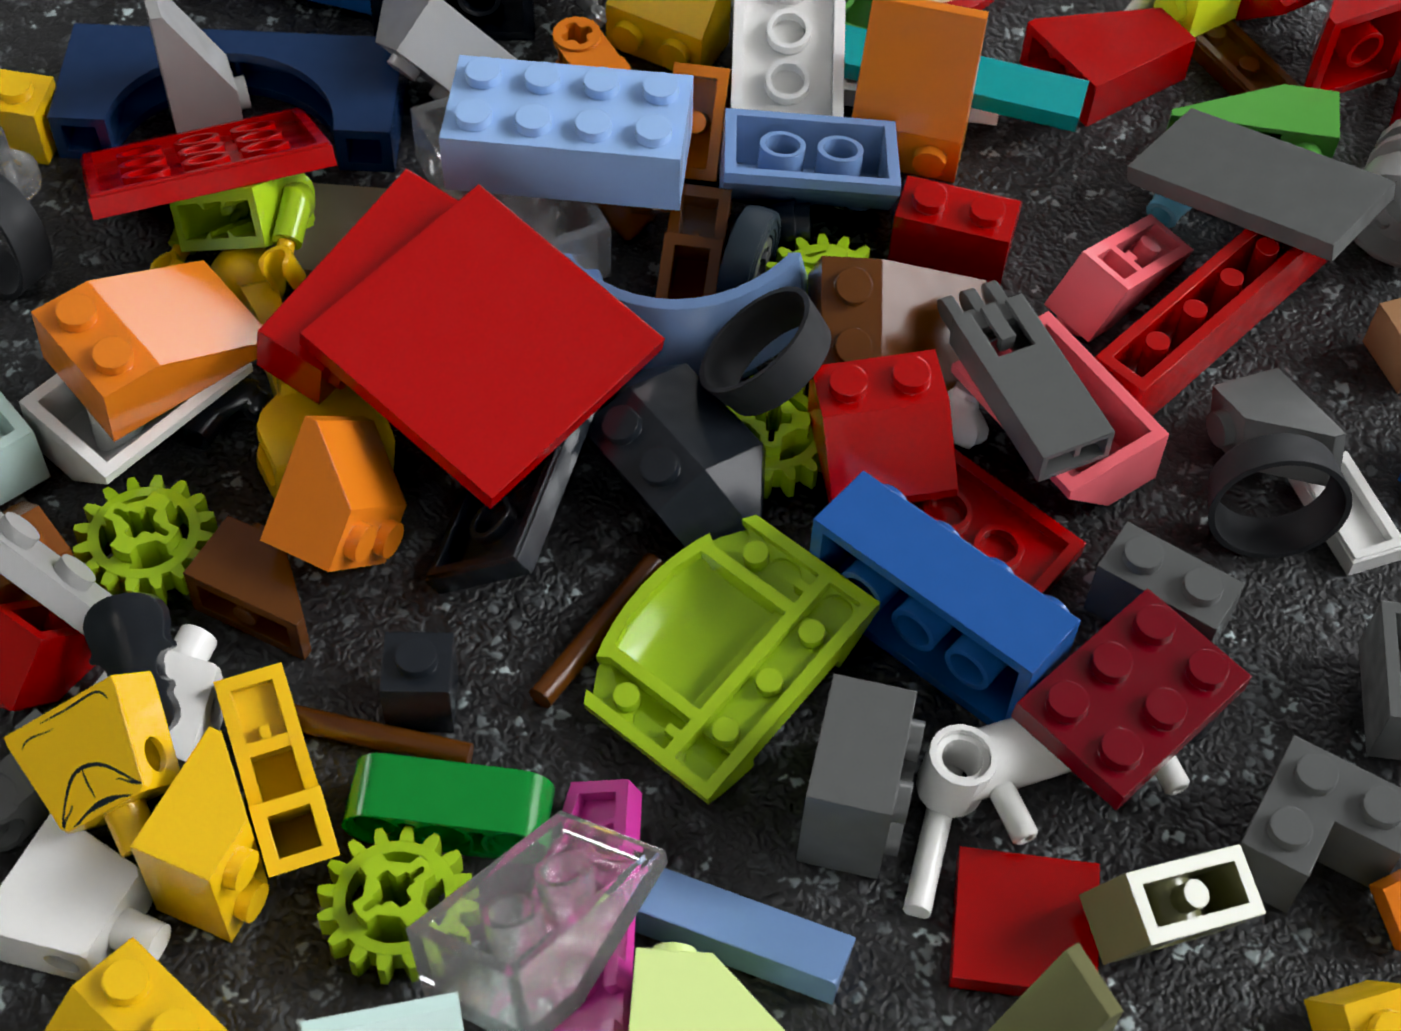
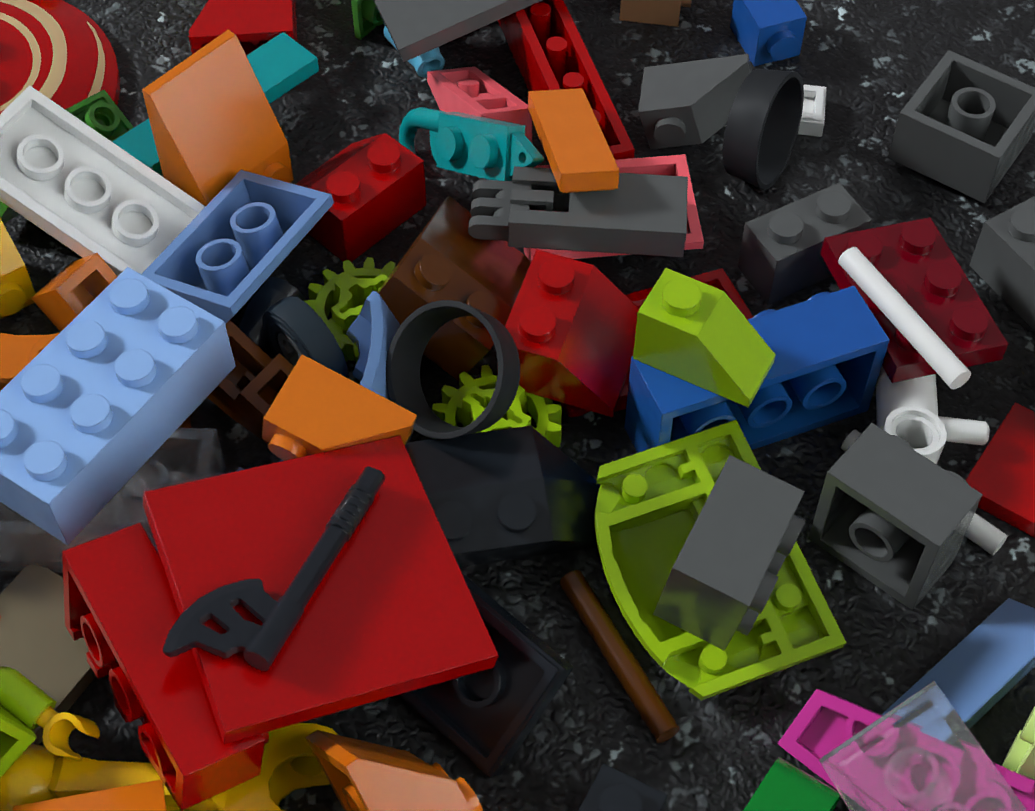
camera: 60 degrees left, 0 degrees up
(420, 320) = (278, 617): none -> black piece
(648, 275) = (329, 412): none -> orange slope
(698, 631) = (732, 554): none -> dark grey brick
(901, 504) = (701, 338): none -> lime slope
(1051, 262) = (471, 143): none -> teal plate
(1069, 678) = (904, 318): none -> white bar
(1089, 323) = (573, 141): none -> orange tile

